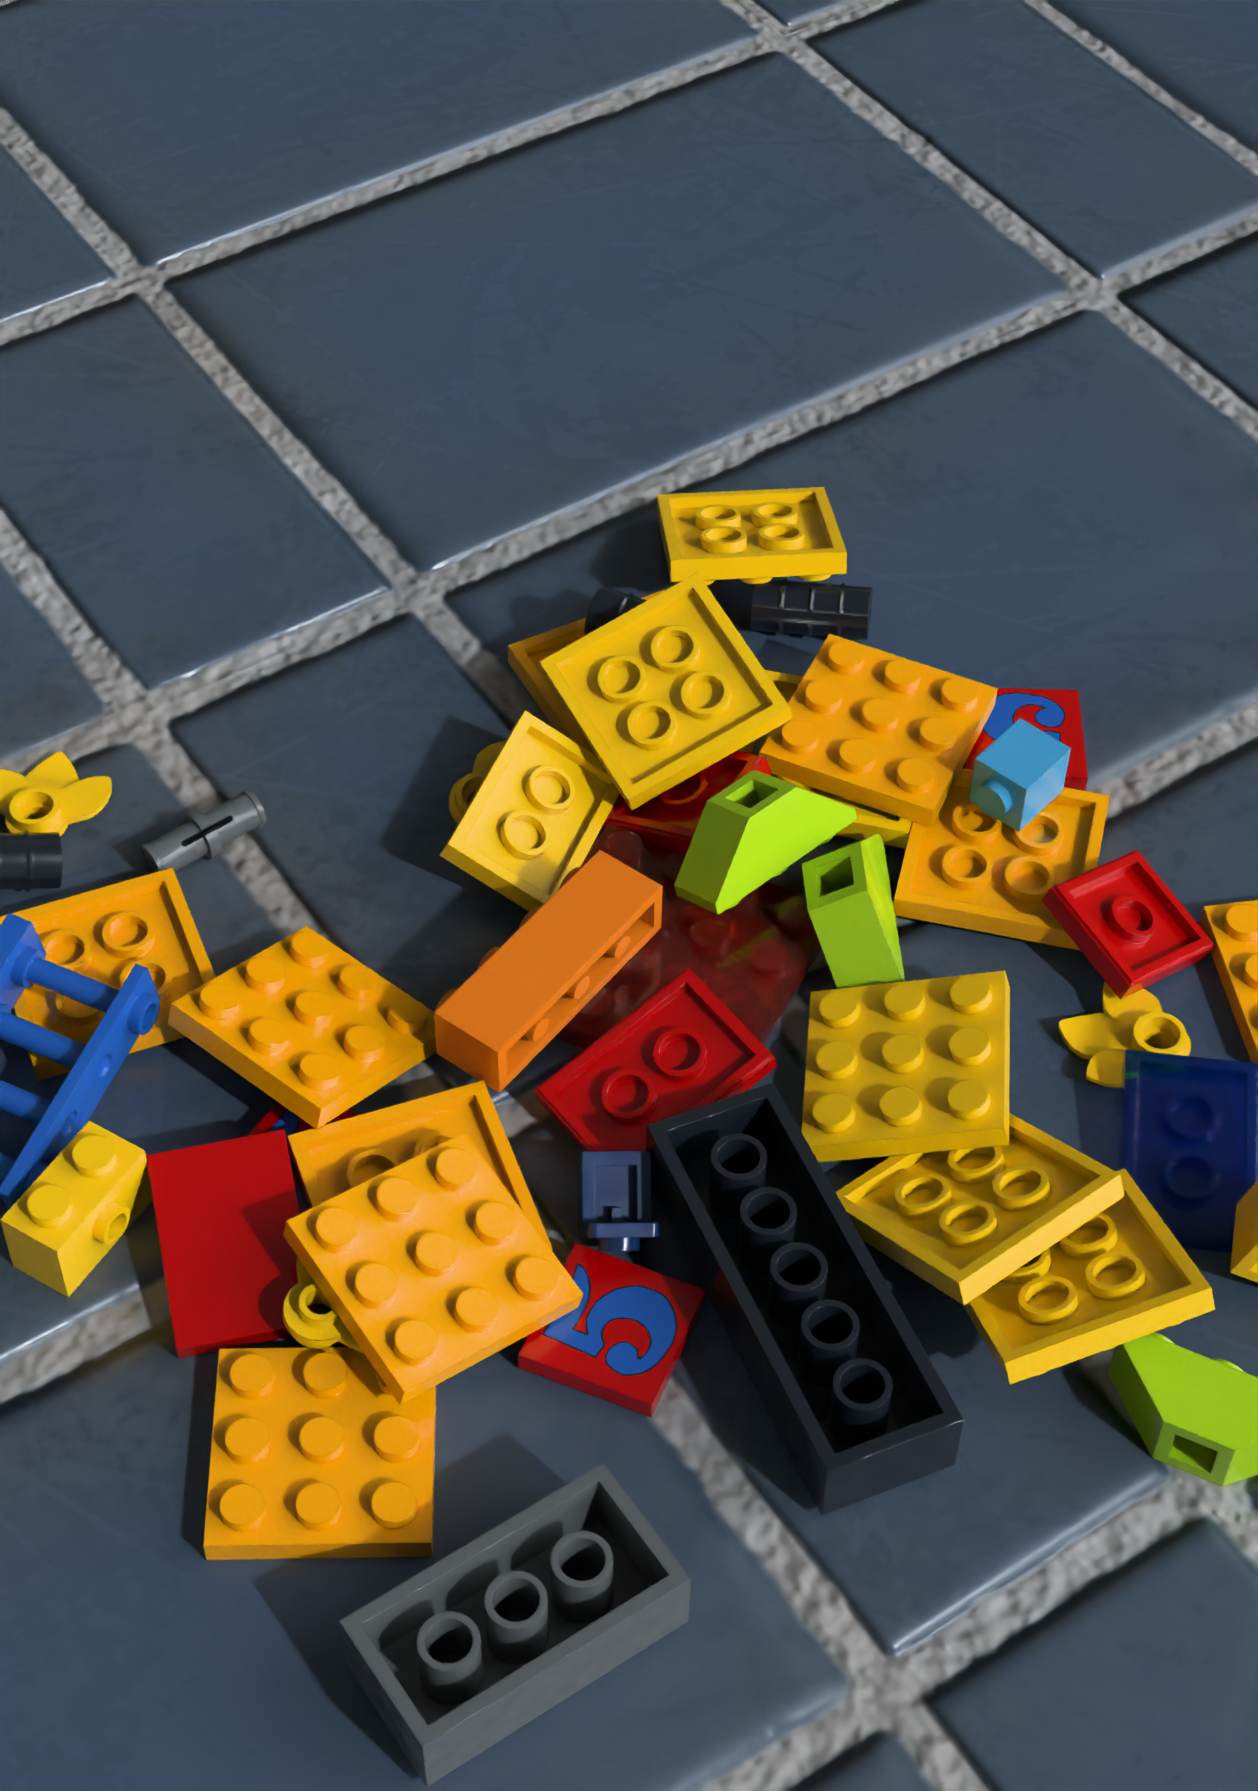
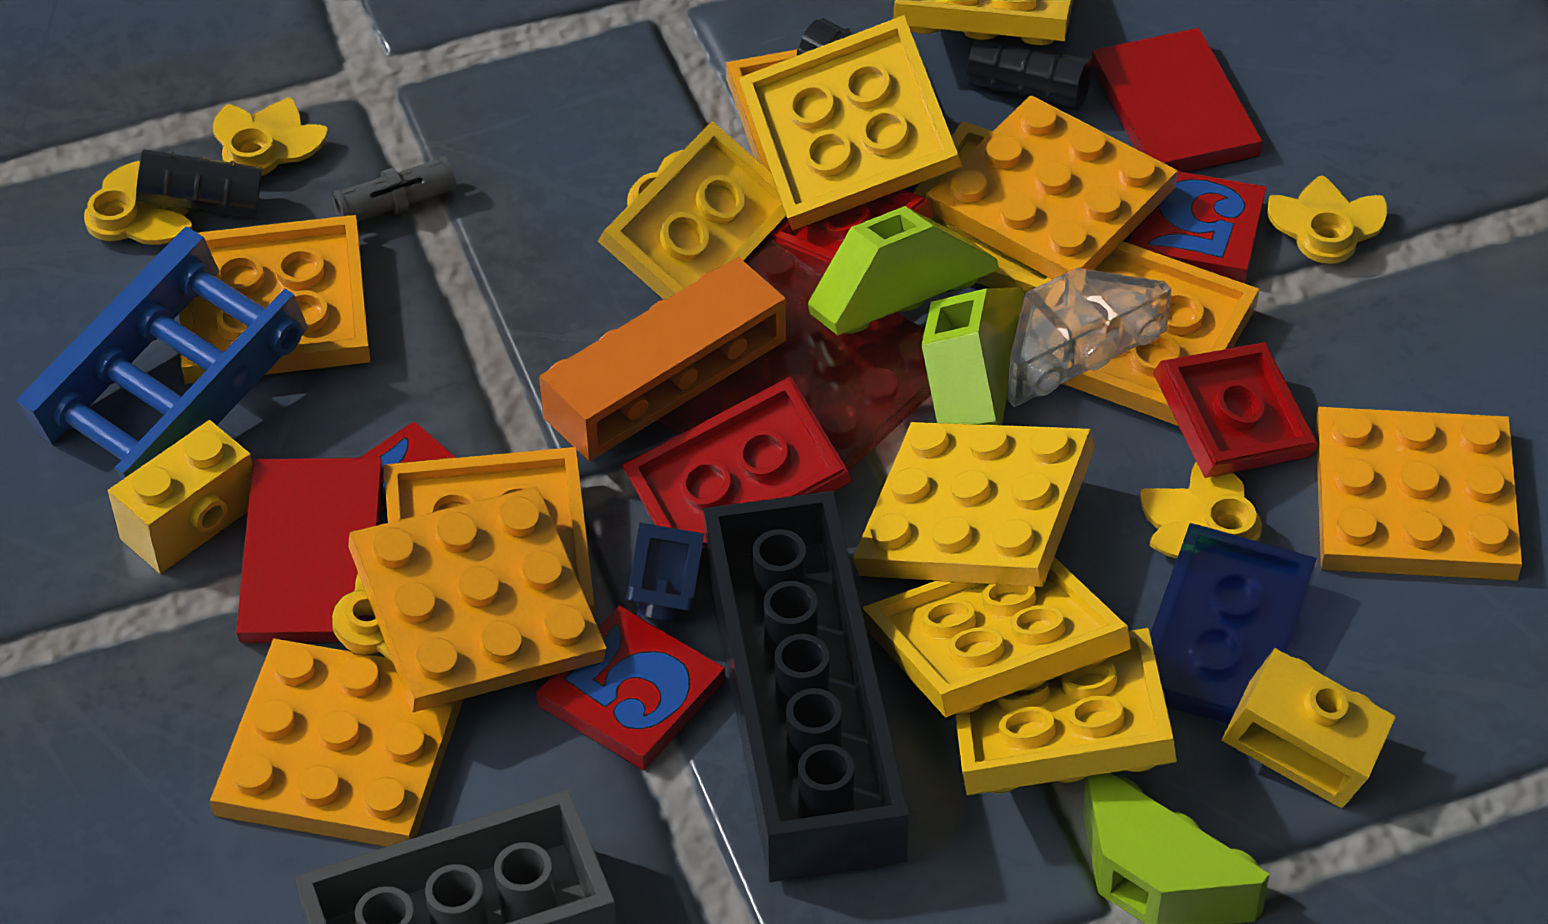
camera: 15 degrees right, 0 degrees up
(308, 1026) = (432, 373): light orange plate -> none
(958, 864) = (1080, 326): none -> clear slope
(961, 616) = (1176, 101): none -> red tile
(1019, 774) = (1171, 248): dark azure brick -> none
(1143, 718) = (1326, 222): none -> yellow plate

